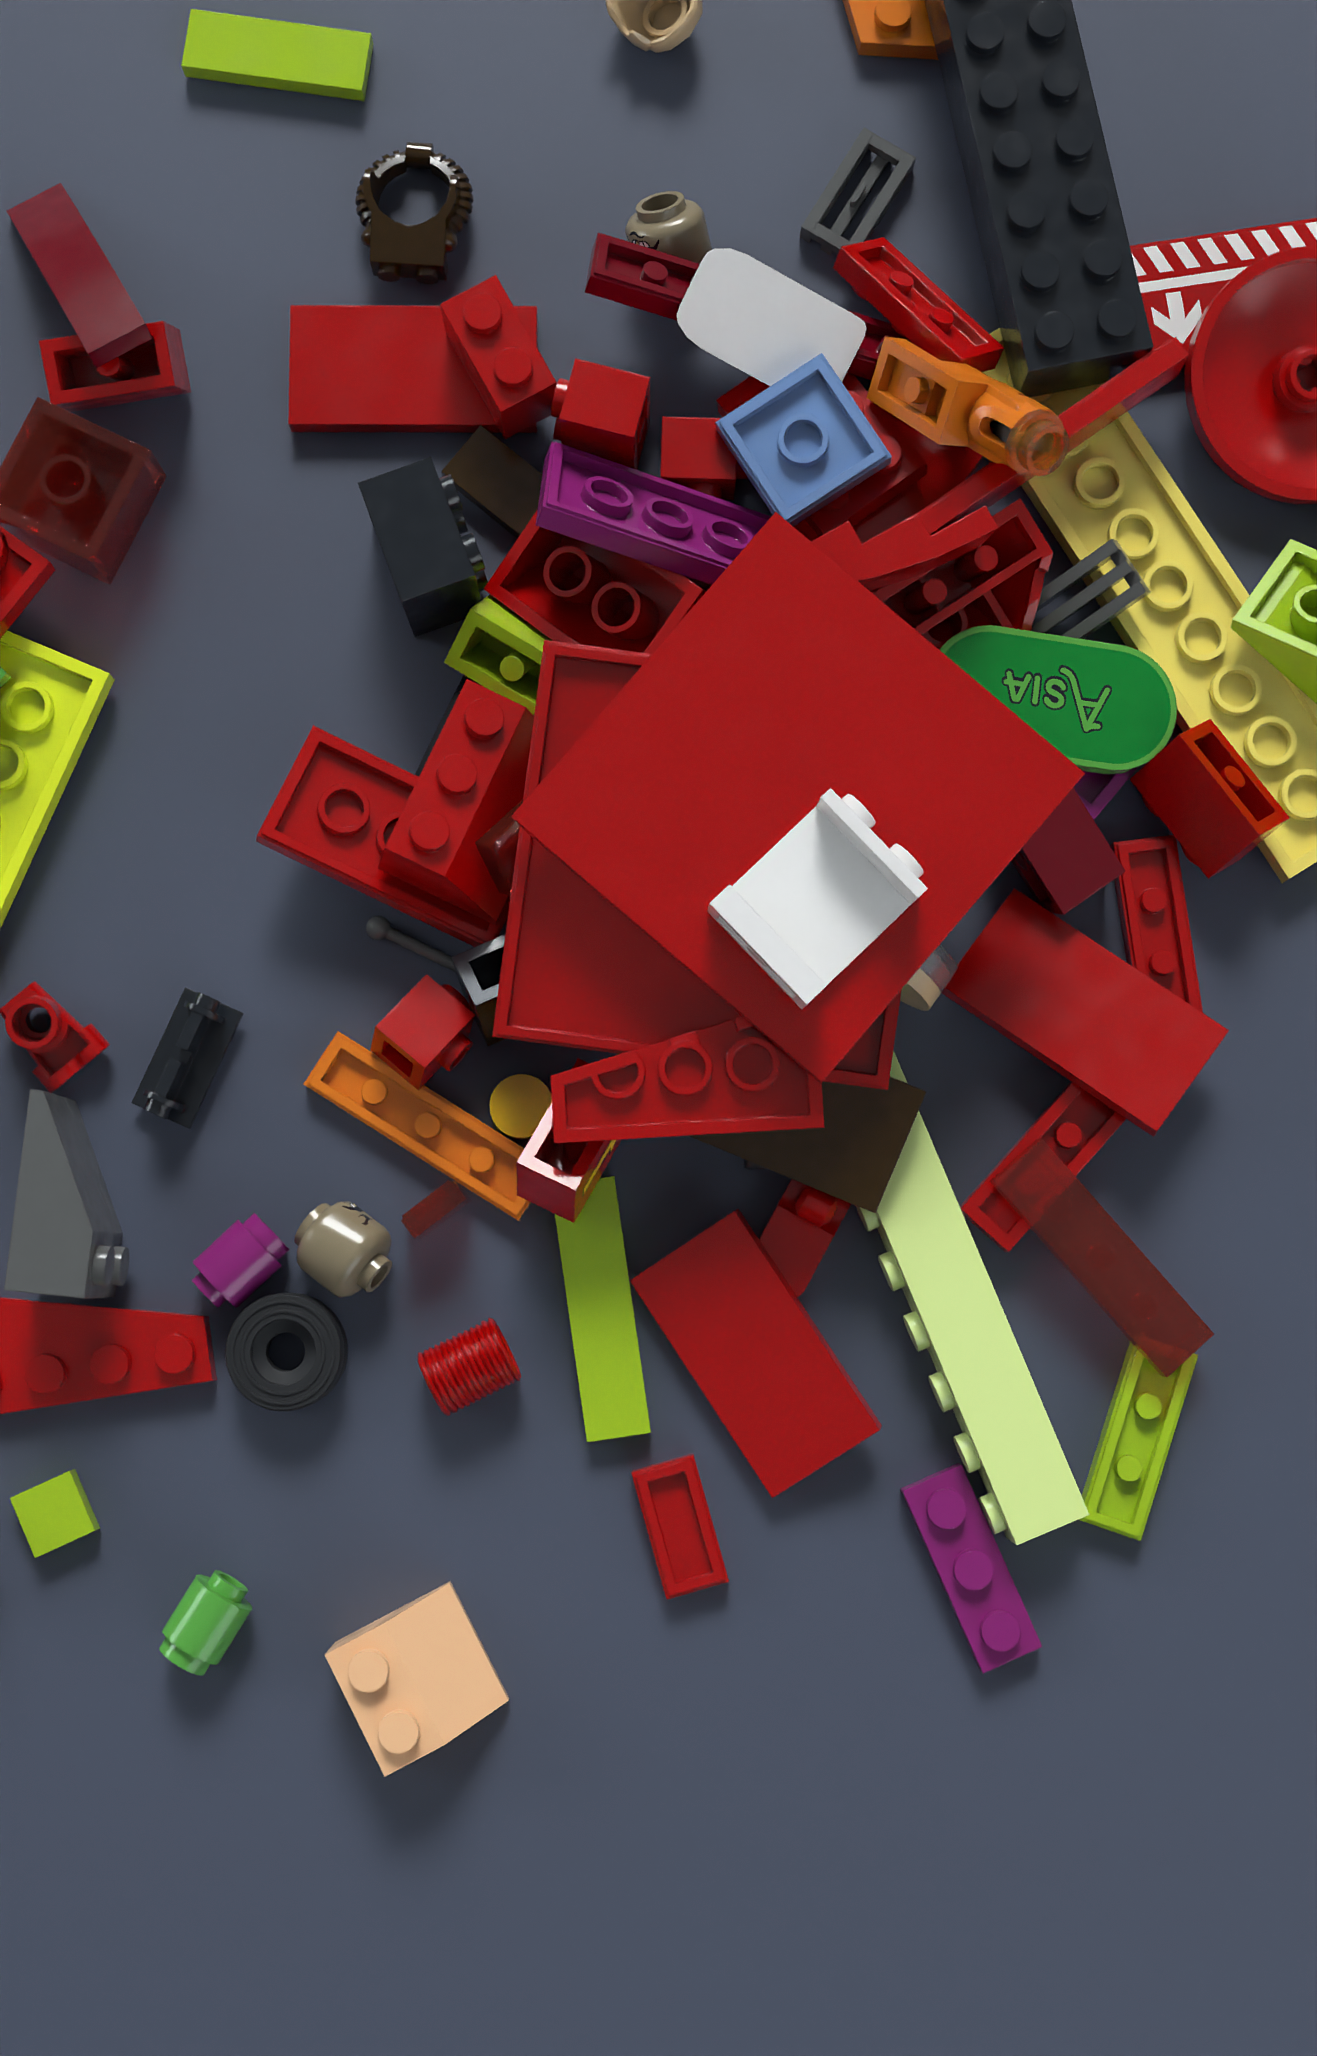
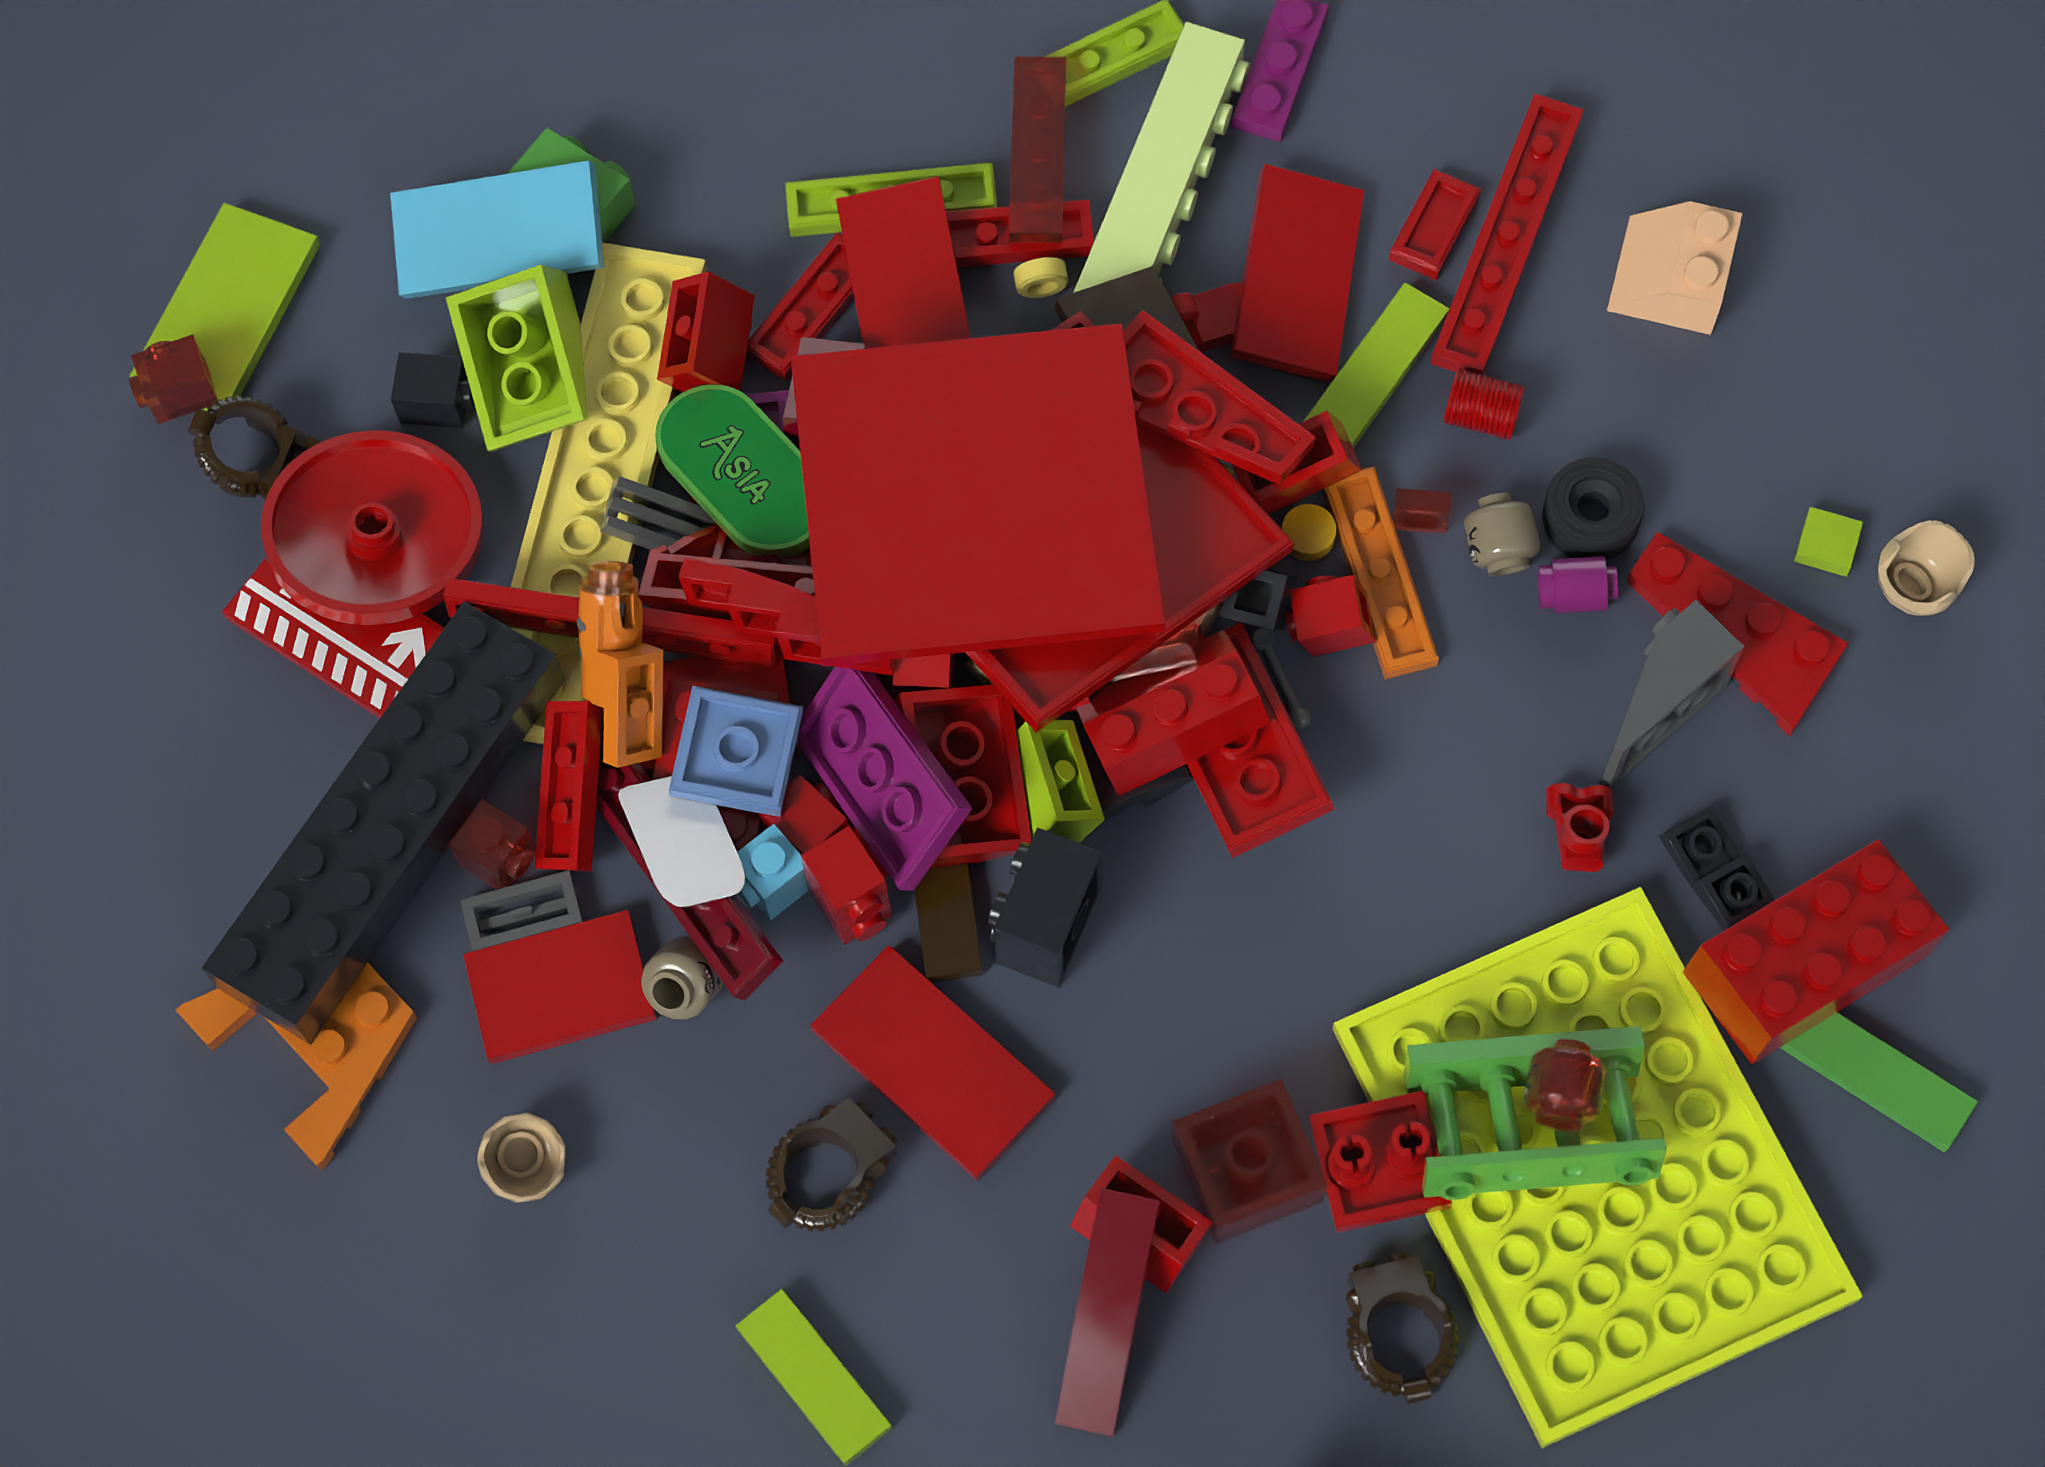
camera: 130 degrees left, 15 degrees down
(187, 1058) = (1502, 740): black hinge -> none
(205, 1622) = (1782, 397): bright green brick -> none
(499, 356) = (874, 989): red brick -> none
(600, 1573) = (1507, 236): none -> red plate
(683, 383) = (771, 873): none -> medium azure brick
(771, 163) = (558, 987): none -> red tile
(819, 897) = (1026, 415): white panel -> none
(929, 213) = (493, 846): none -> clear red brick
(978, 1135) = (1041, 277): none -> light yellow tile
(1138, 1163) = (814, 206): none -> lime tile

